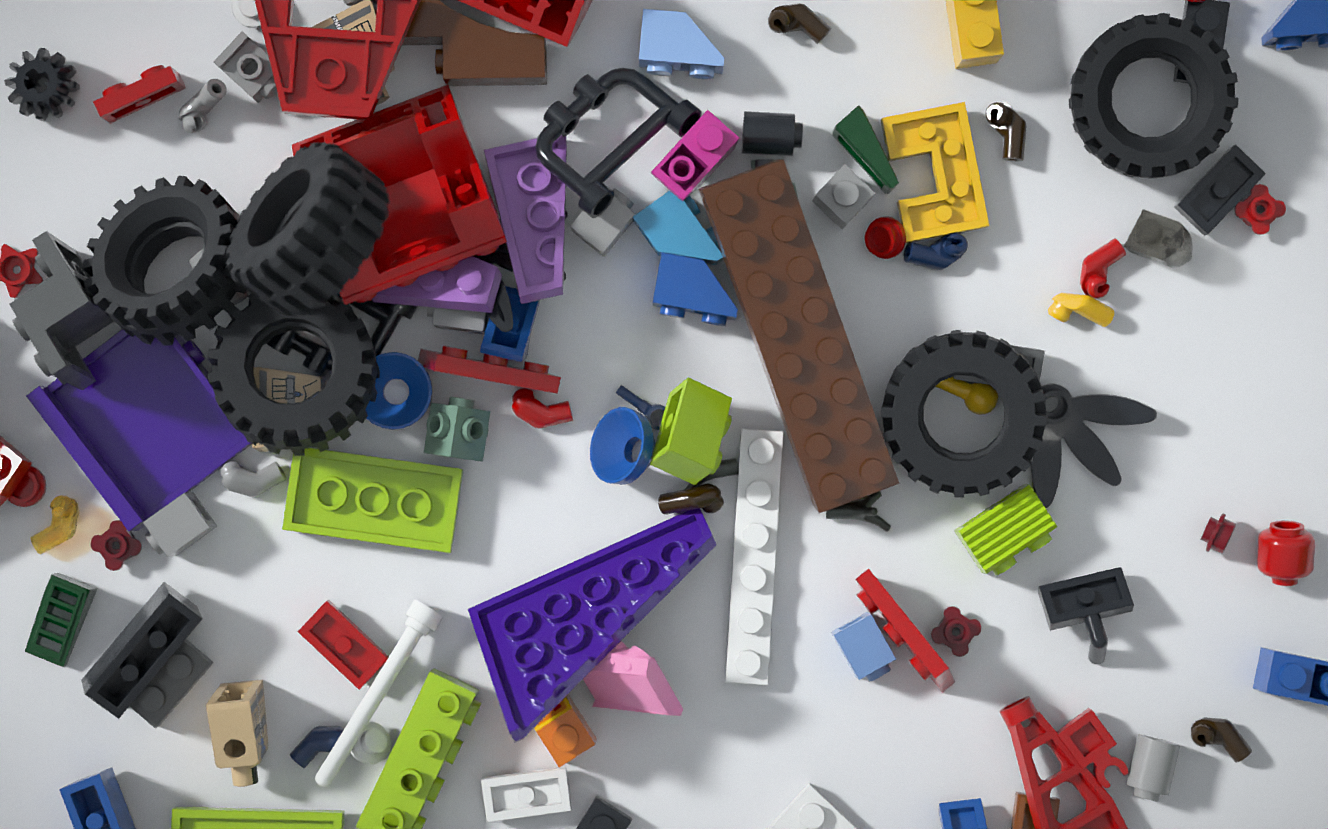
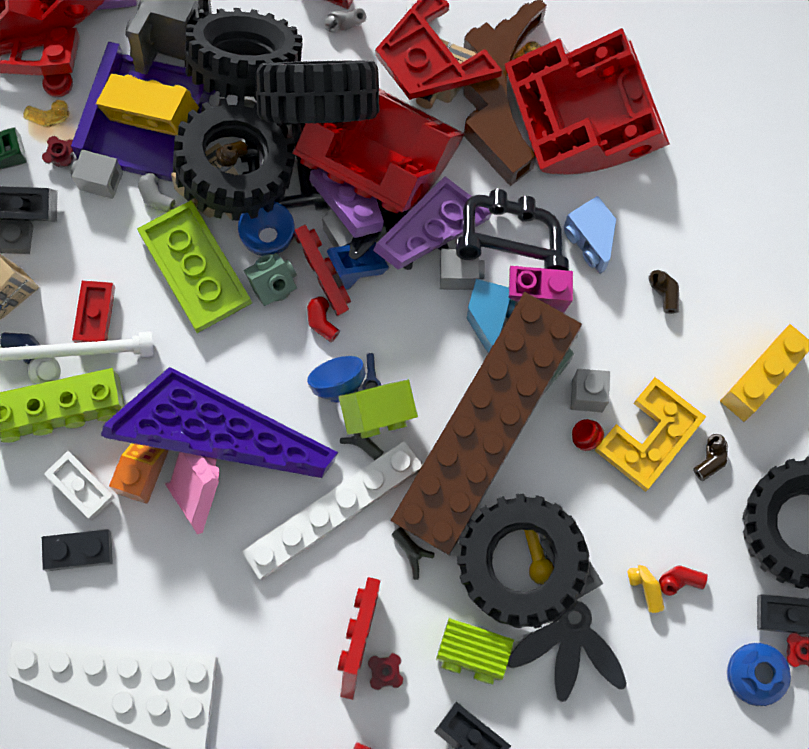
camera: 50 degrees right, 15 degrees down
(144, 409) = (146, 103): none -> yellow brick
(238, 57) = (383, 21): light grey brick -> none
(293, 375) = (229, 153): none -> dark brown arm
(691, 287) = (462, 344): blue slope -> none
(702, 496) = (339, 443): dark brown arm -> none
(770, 133) = (594, 323): black brick -> none
(862, 144) = (630, 373): dark green slope -> none
(864, 647) = (329, 620): medium blue brick -> none
(938, 254) = (605, 475): dark blue arm -> none
(1160, 240) = (731, 603): clear smoke plate -> none
(1224, 274) = (743, 679): none -> blue piece

